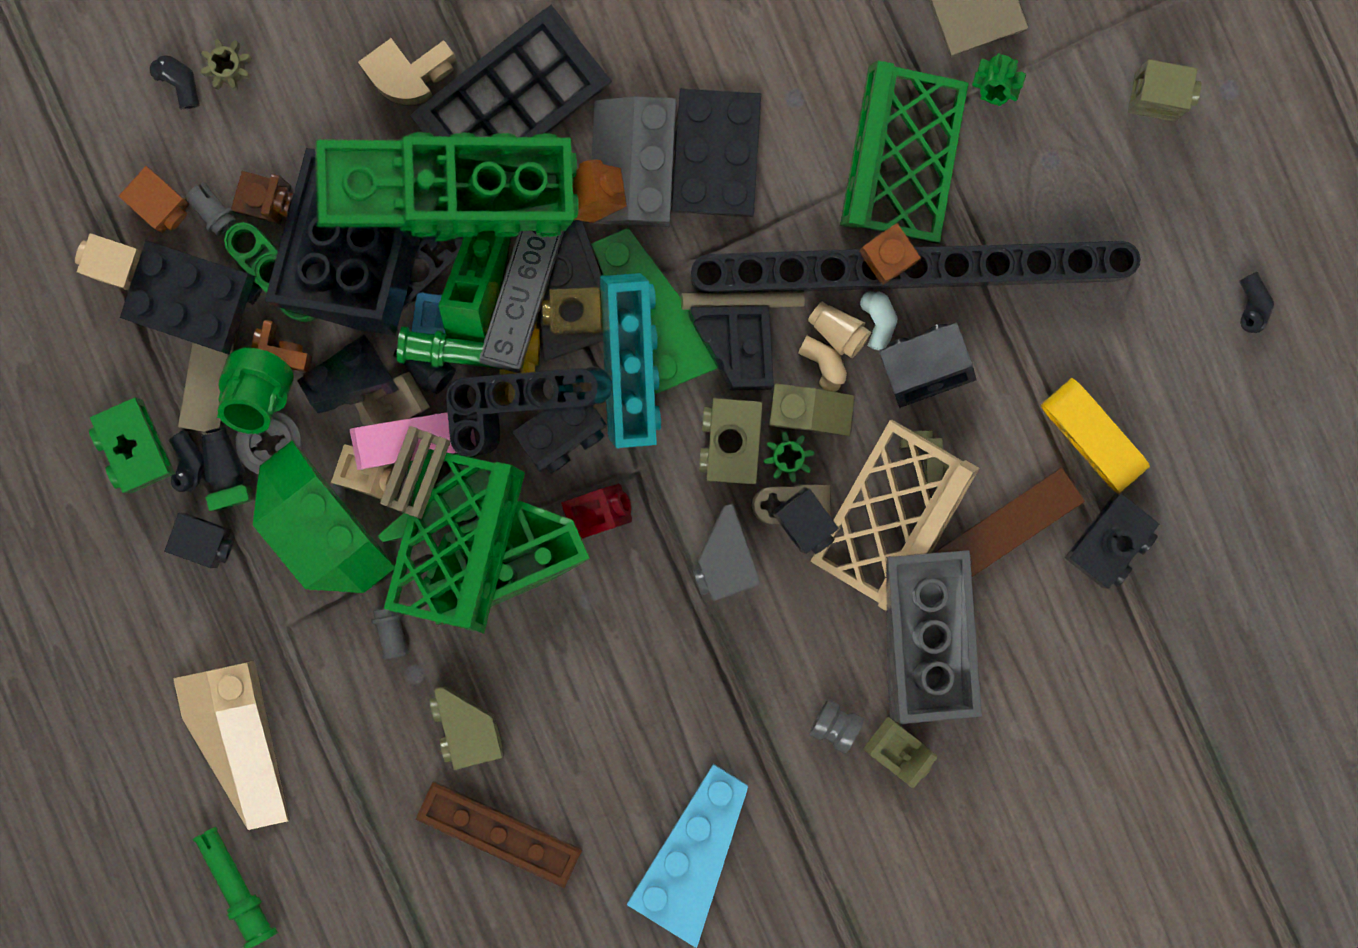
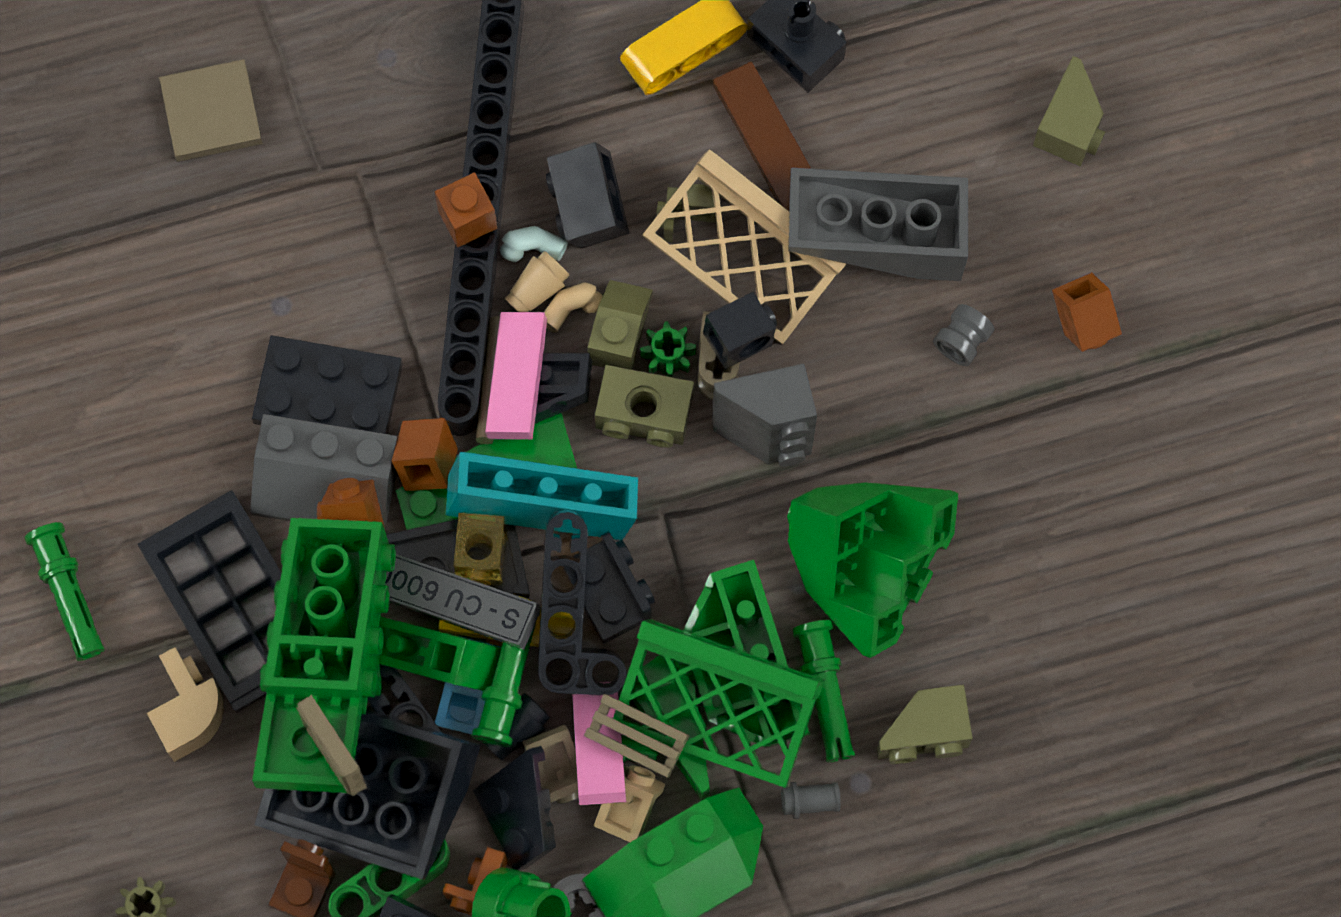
camera: 85 degrees left, 15 degrees down
(348, 204) = (331, 746): none -> dark tan tile
(498, 834) = (1047, 709): reddish brown tile -> none
(509, 629) = (822, 663): none -> green pin
(599, 510) = (700, 553): dark red bracket -> none
(619, 659) = (869, 553): none -> green brick
(660, 249) = (424, 454): none -> dark orange brick
(688, 866) = (1096, 507): medium azure wing -> none
(743, 322) = (516, 375): none -> bright pink tile
(869, 148) = (337, 227): green fence -> none
(869, 838) = (1087, 312): none -> dark orange brick
(900, 752) = (999, 272): olive bracket -> none
(999, 79) = (295, 92): green gear -> none
(1064, 808) = (1072, 118): none -> olive slope

